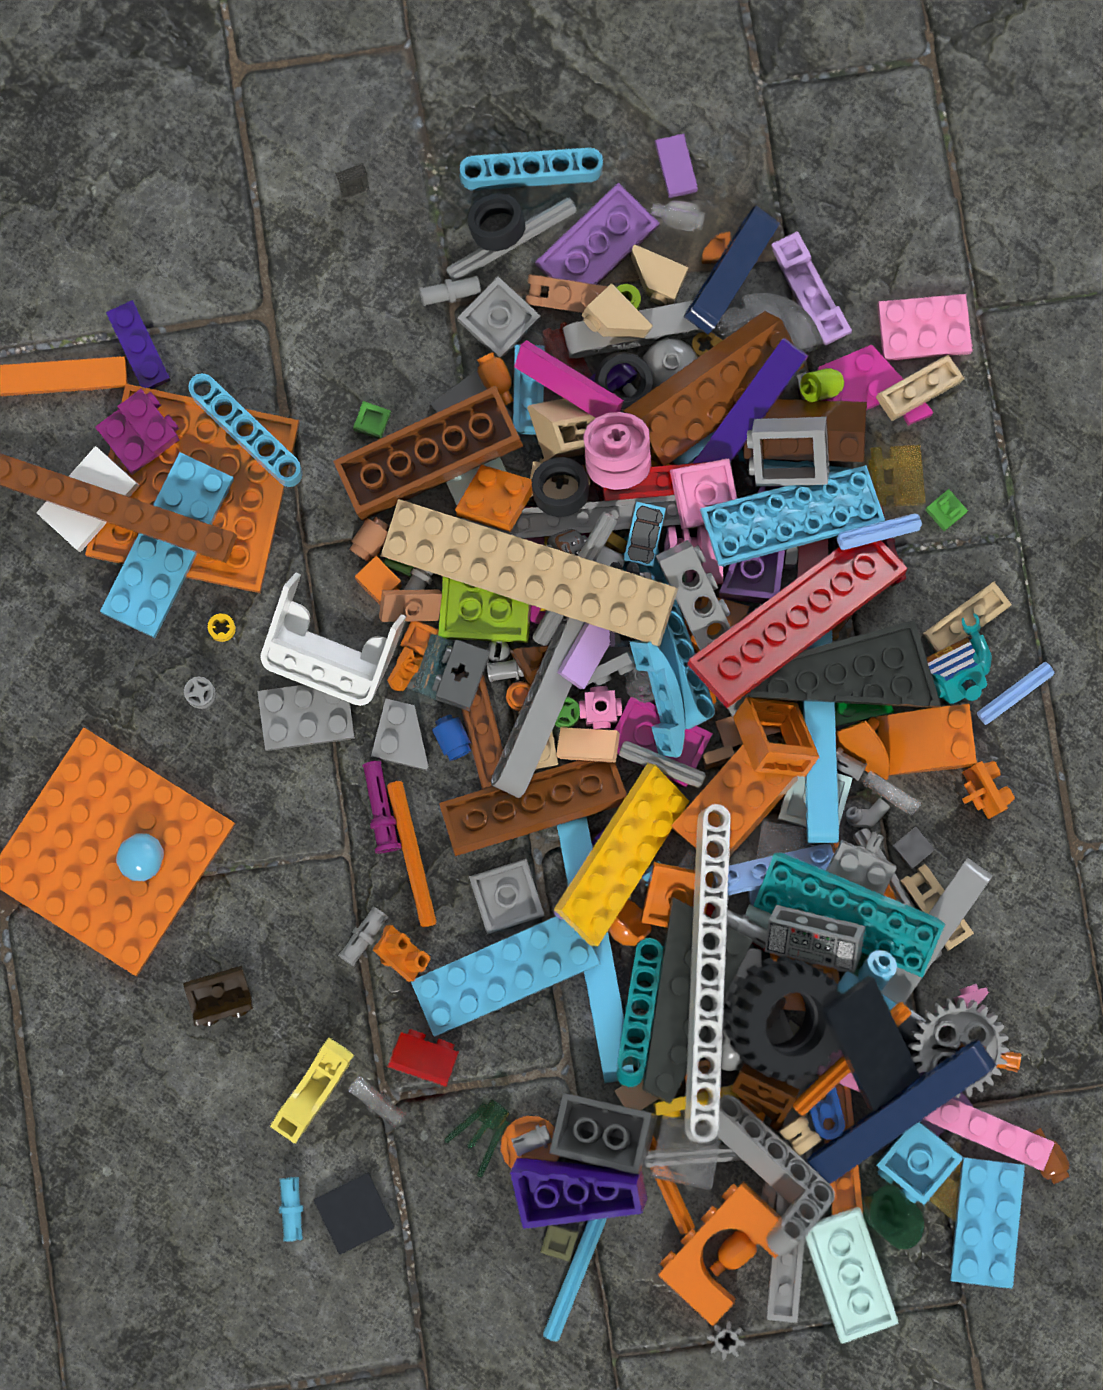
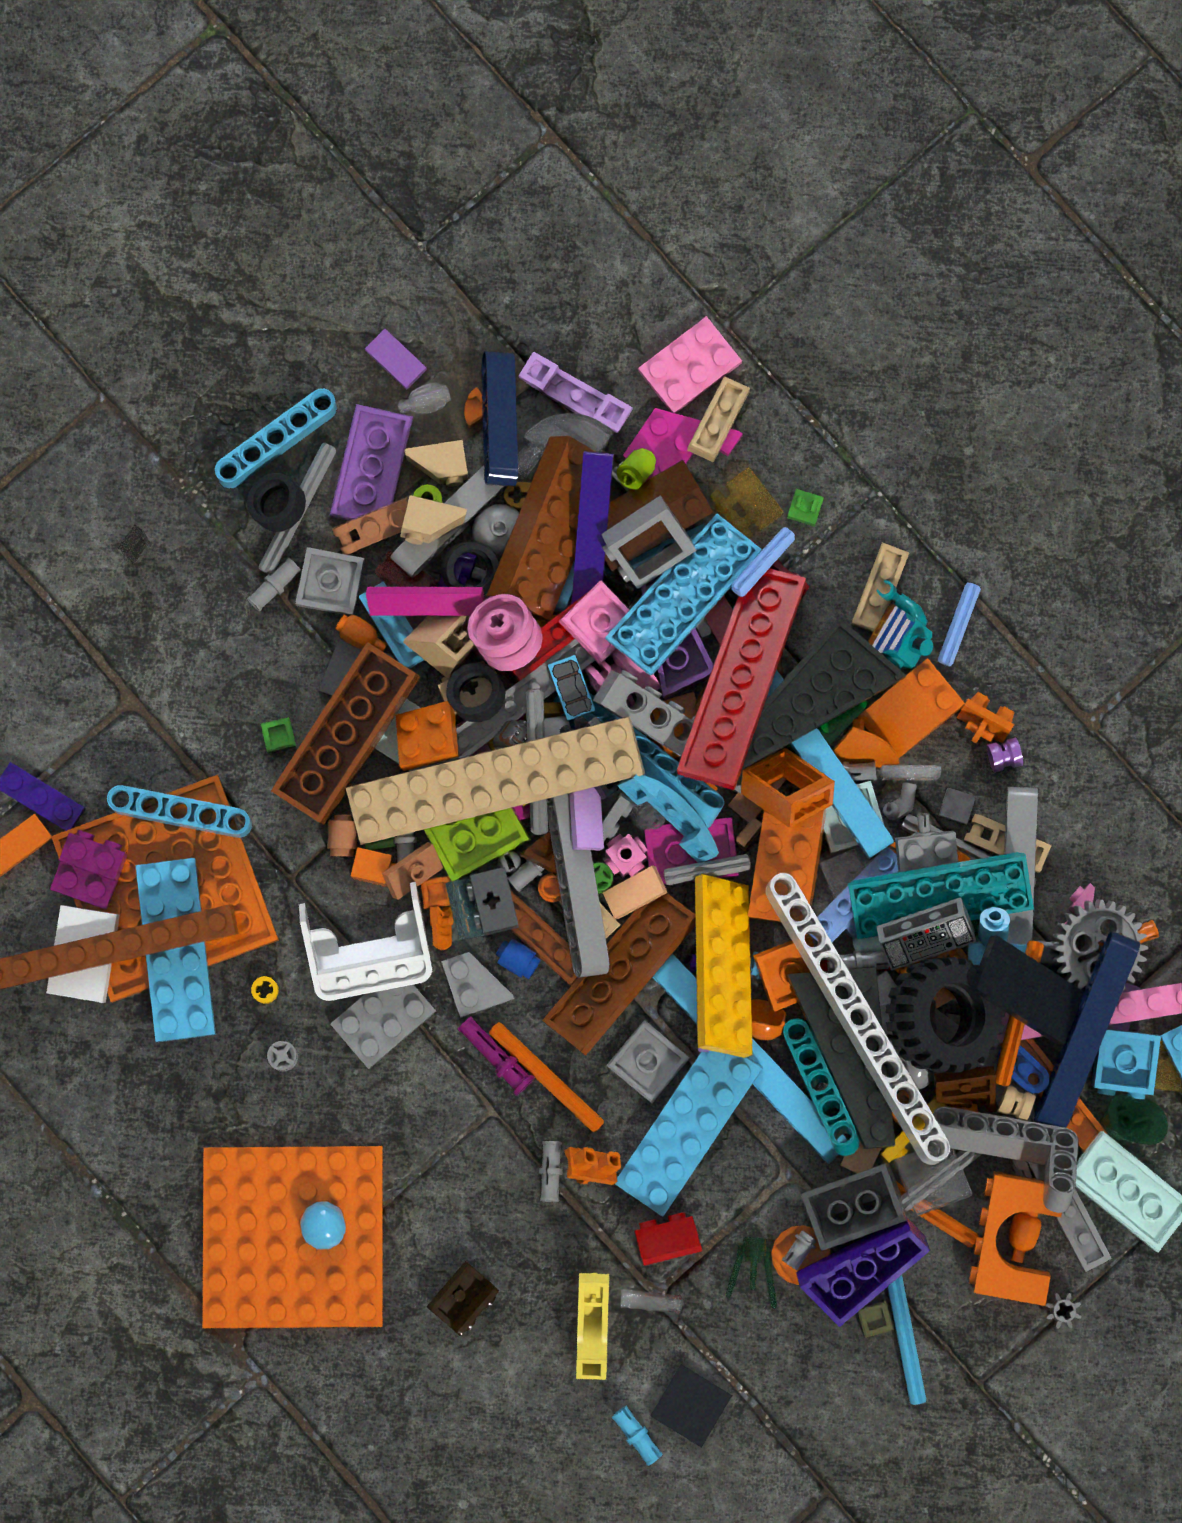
camera: 30 degrees left, 0 degrees up
(983, 830) = (1005, 755): none -> medium lavender wheel

